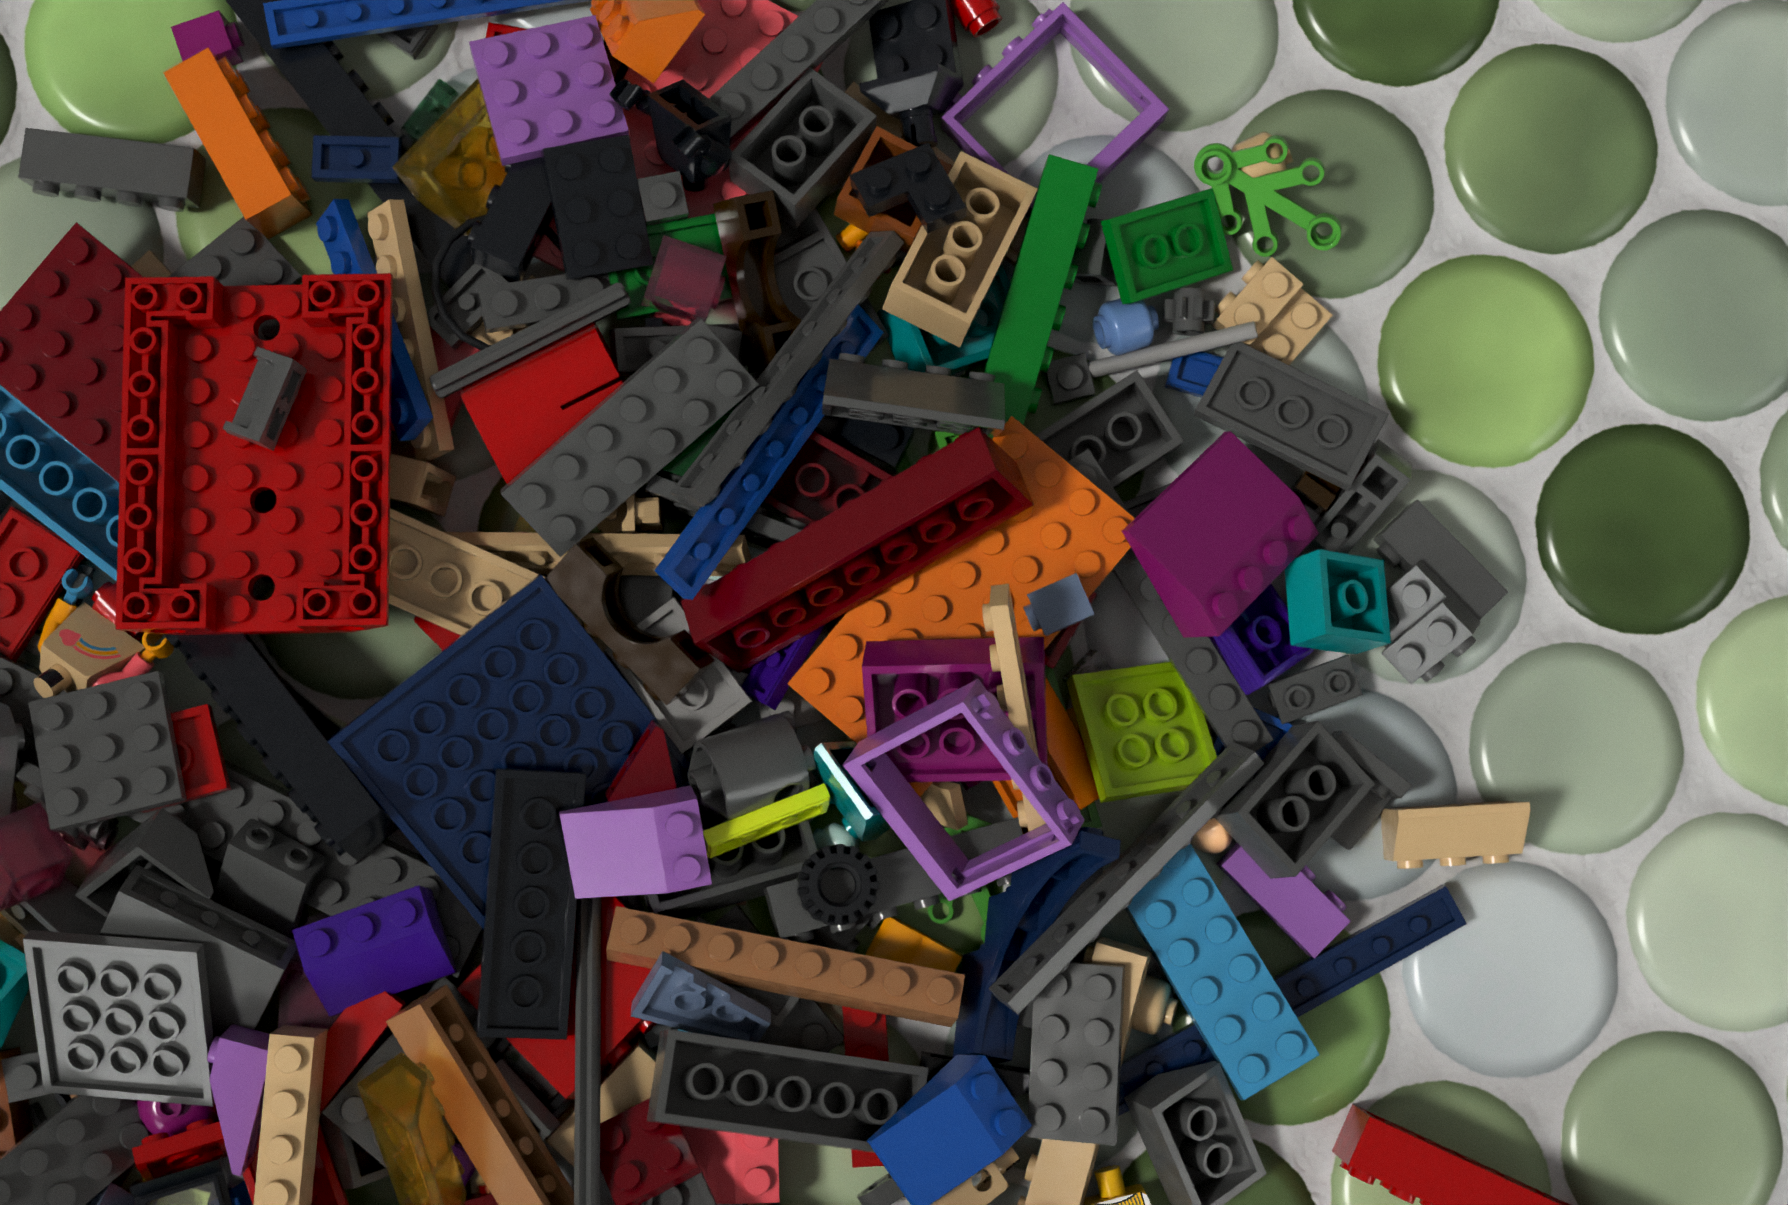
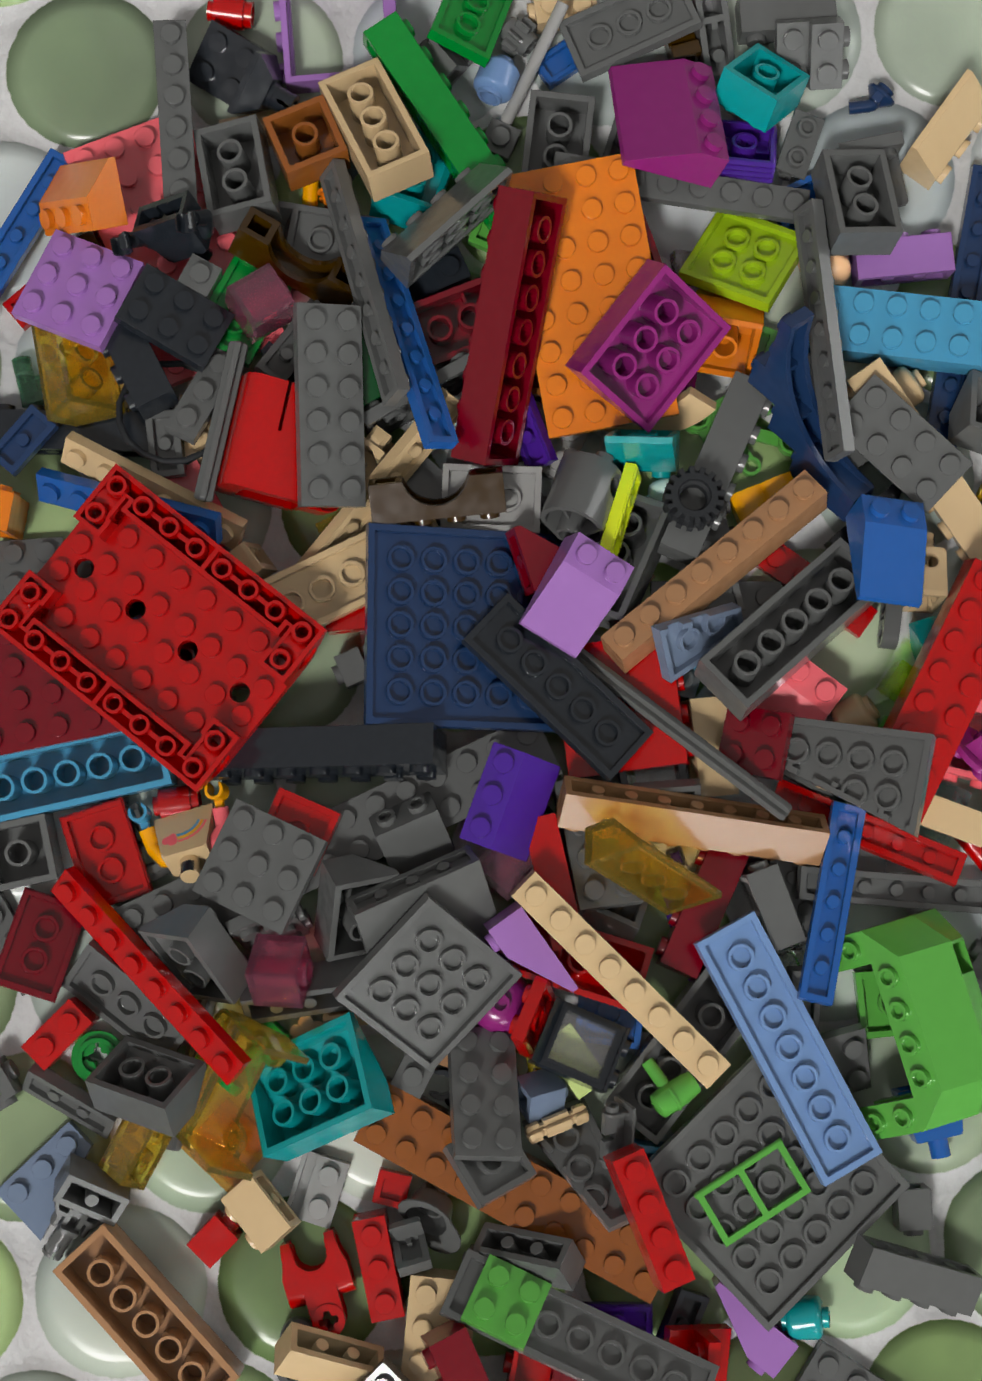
camera: 55 degrees left, 0 degrees up
(267, 399) = (129, 596): dark grey hinge -> none
(394, 668) = (349, 668): none -> dark grey plate
(913, 178) = (312, 119): black plate -> none
(920, 828) = (695, 423): medium lavender window -> none
(1013, 693) = (674, 297): tan plate -> none
(1058, 605) = (637, 234): sand blue brick -> none
(1434, 730) = (879, 97): none -> dark blue plate

